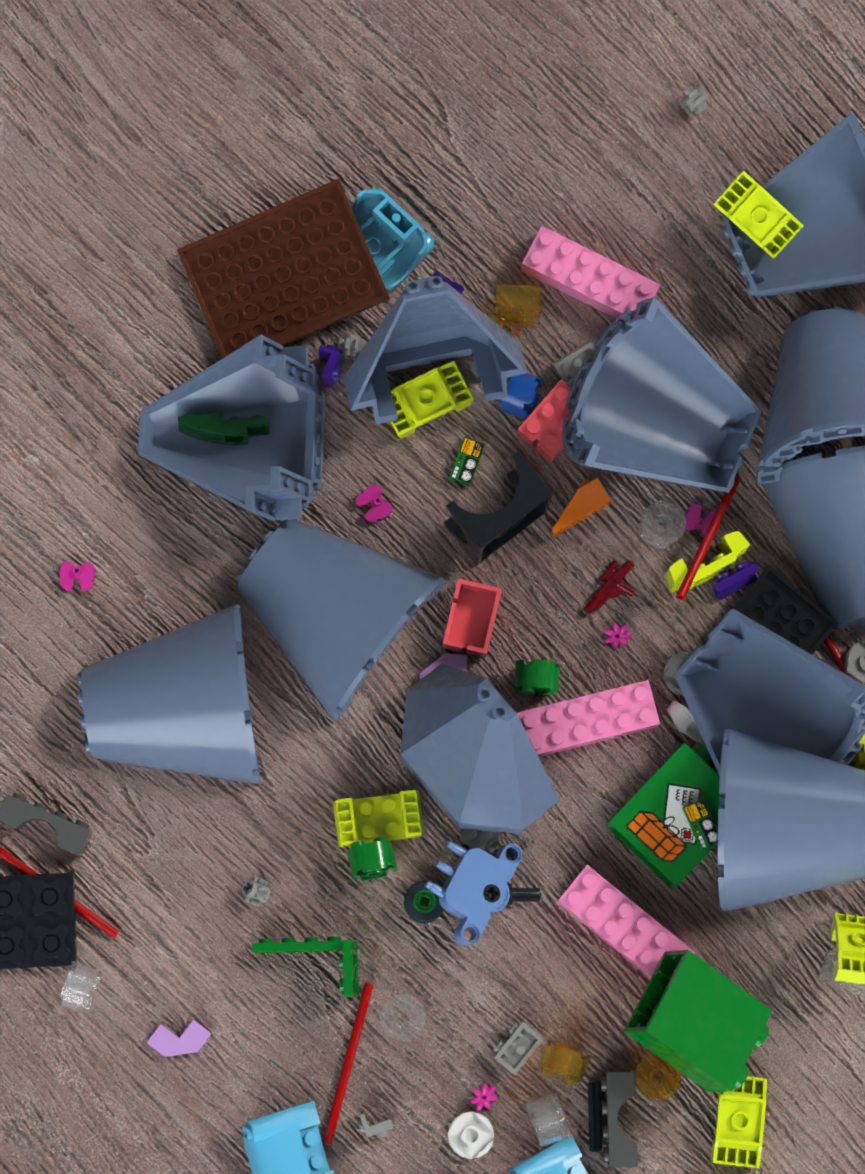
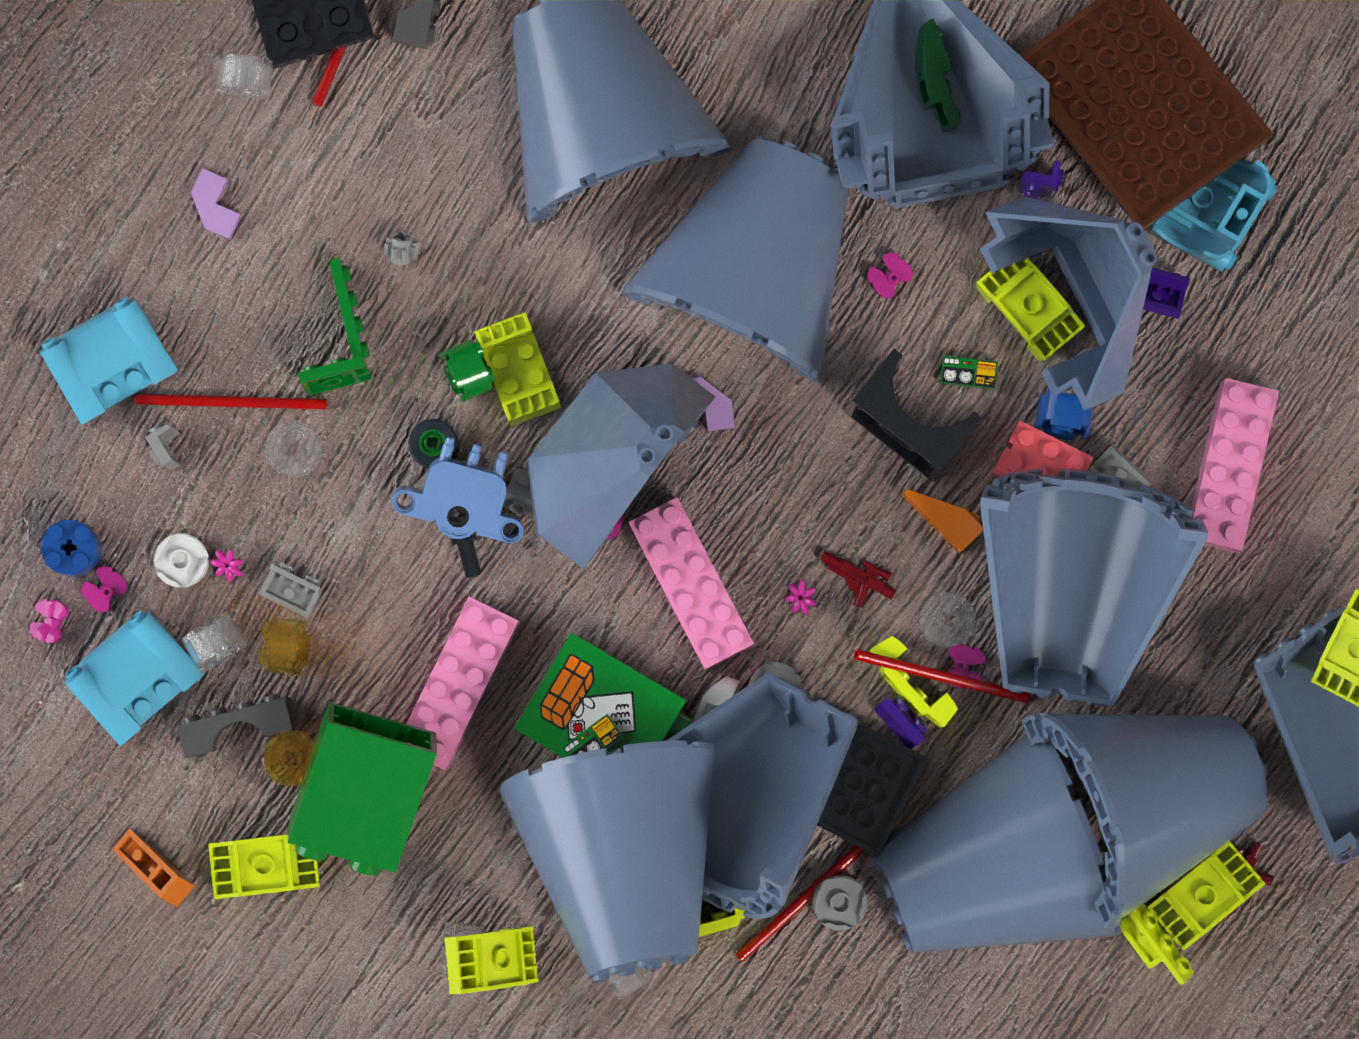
camera: 85 degrees right, 5 degrees up
(350, 346) = (1073, 197): light grey gear -> none
(471, 617) = (777, 422): coral piece -> none
(517, 305) = (1173, 385): clear yellow piece -> none
(536, 677) = (726, 511): green brick -> none
(595, 1117) = (233, 698): black axle -> none

